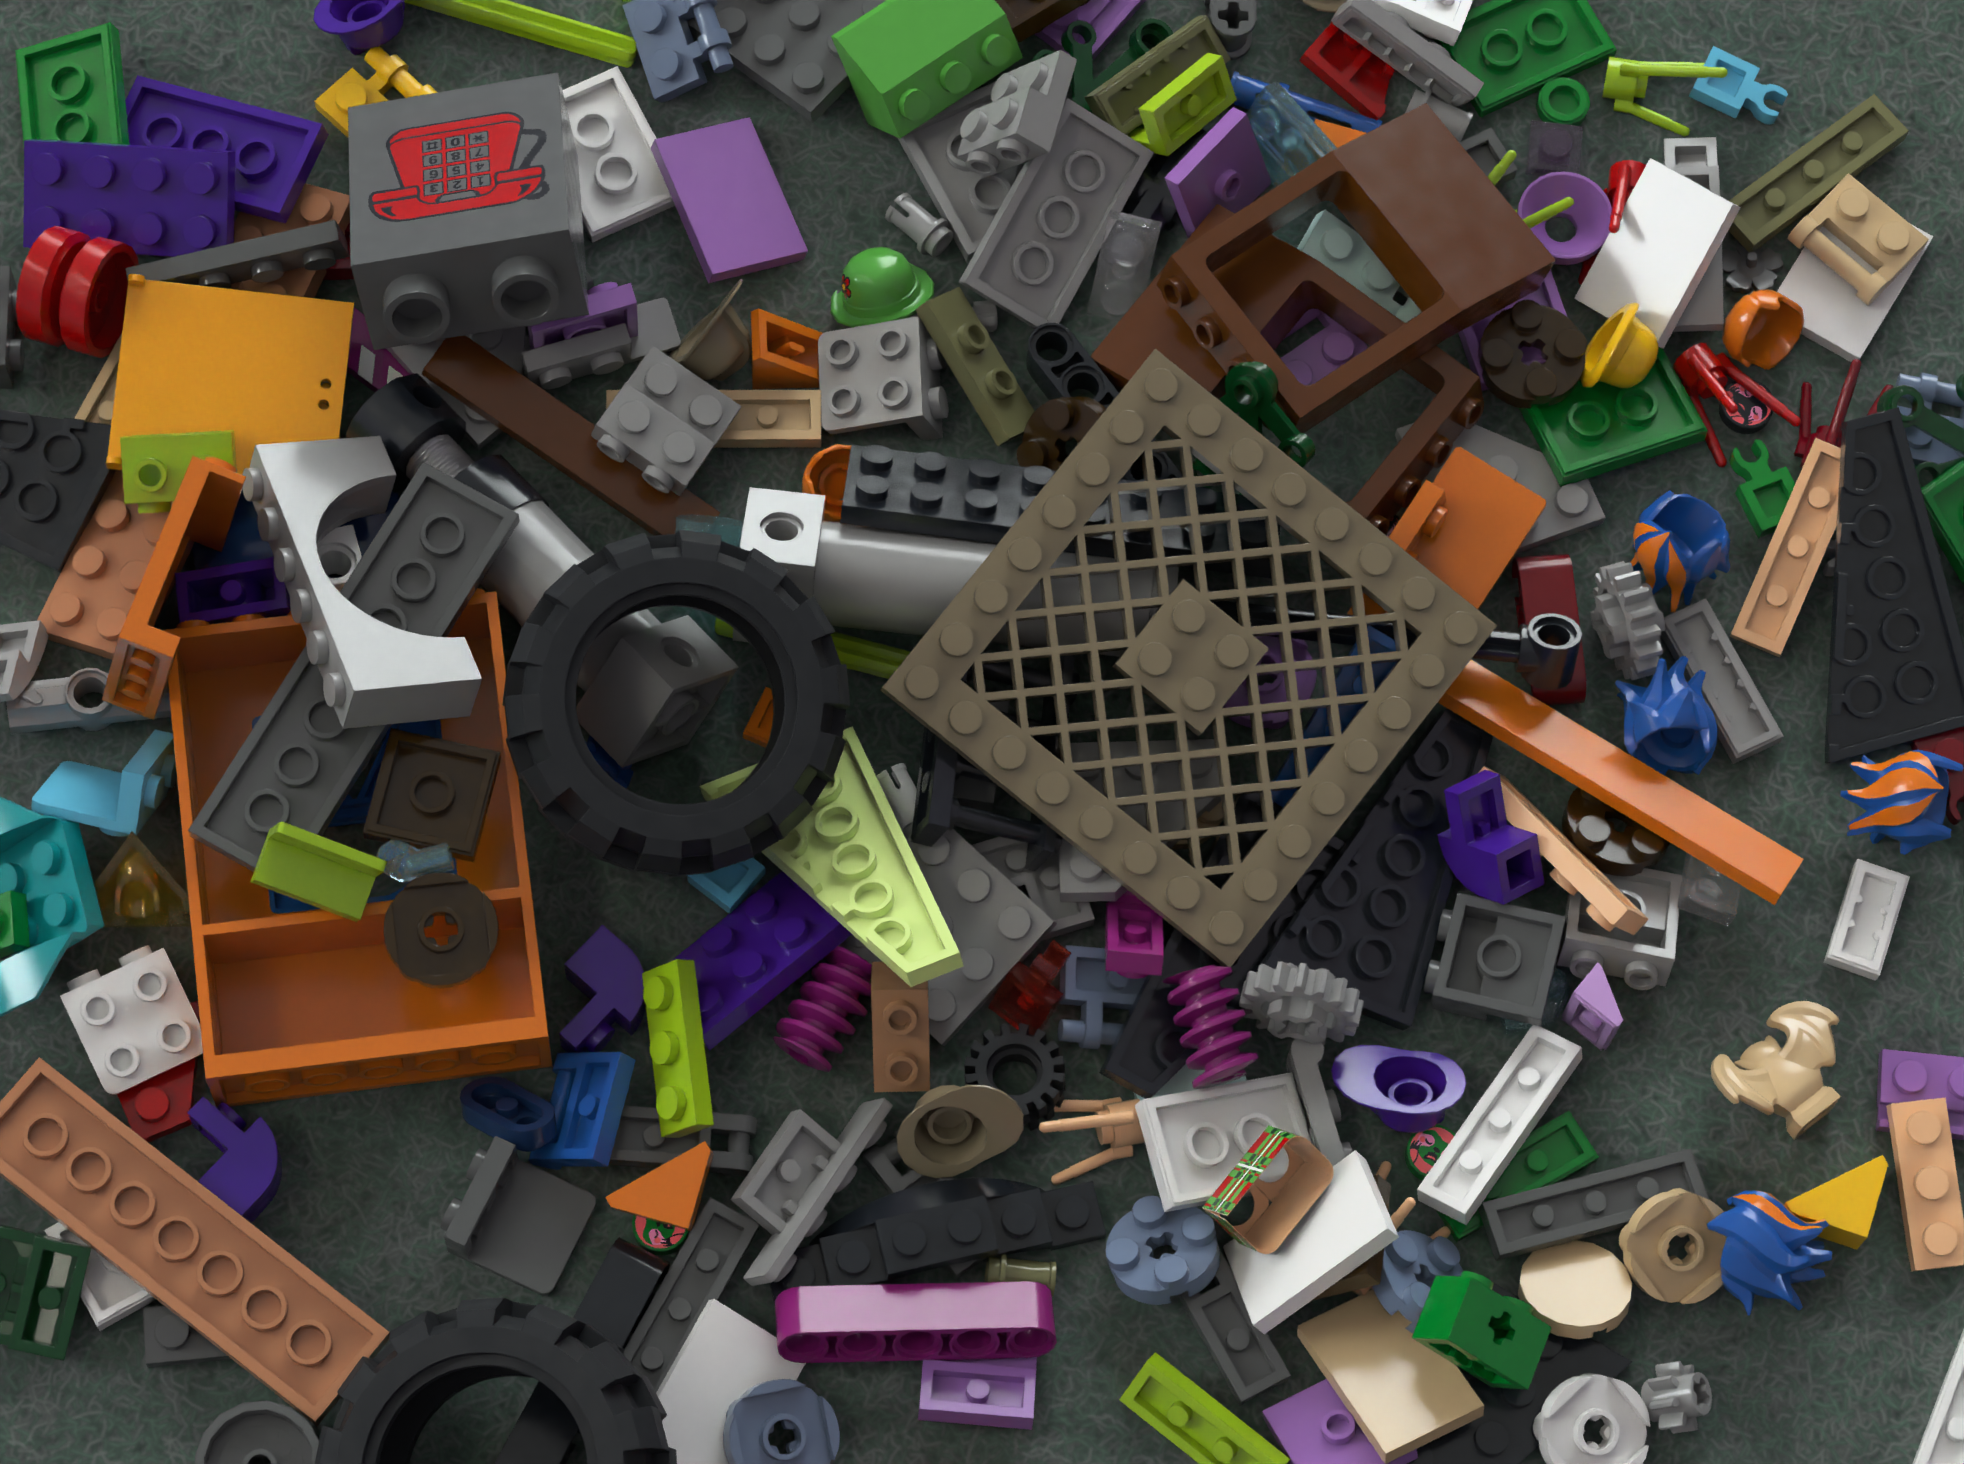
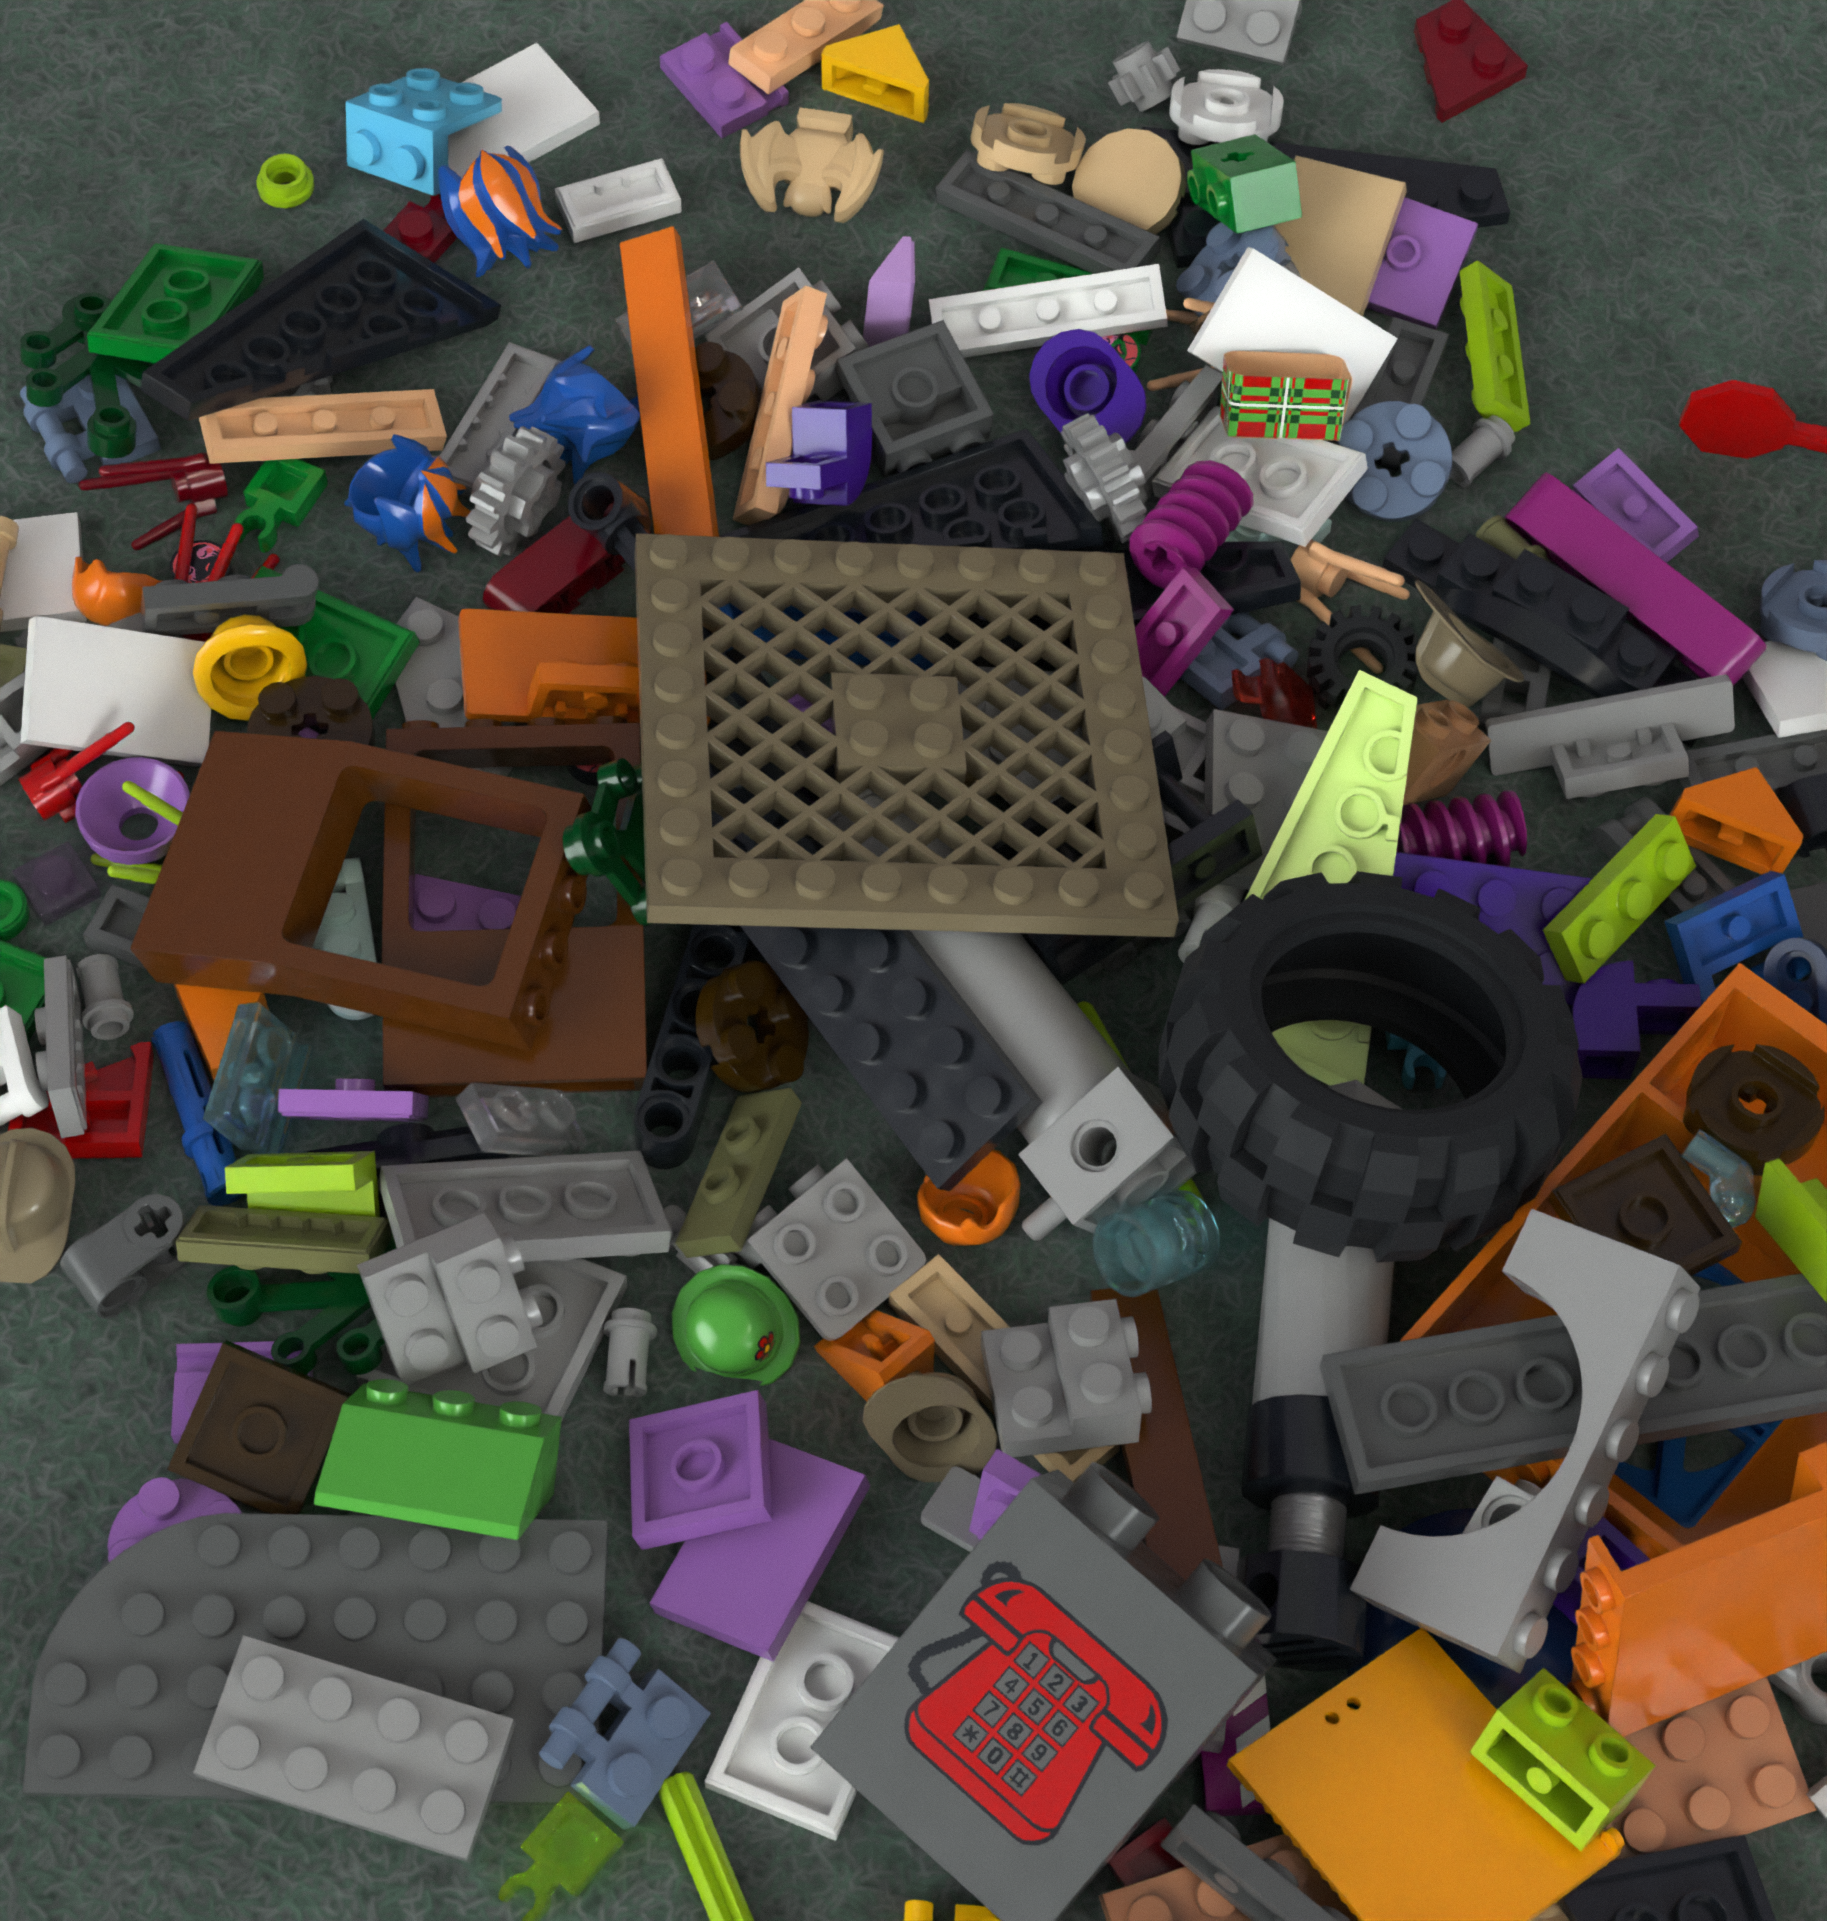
camera: 125 degrees left, 10 degrees down
(801, 194) = (700, 1470): none -> medium lavender plate
(1125, 1335) = (1489, 441): none -> light grey pin
(1670, 360) = (200, 607): none -> dark grey plate
(1767, 1249) = (973, 75): blue hair -> none

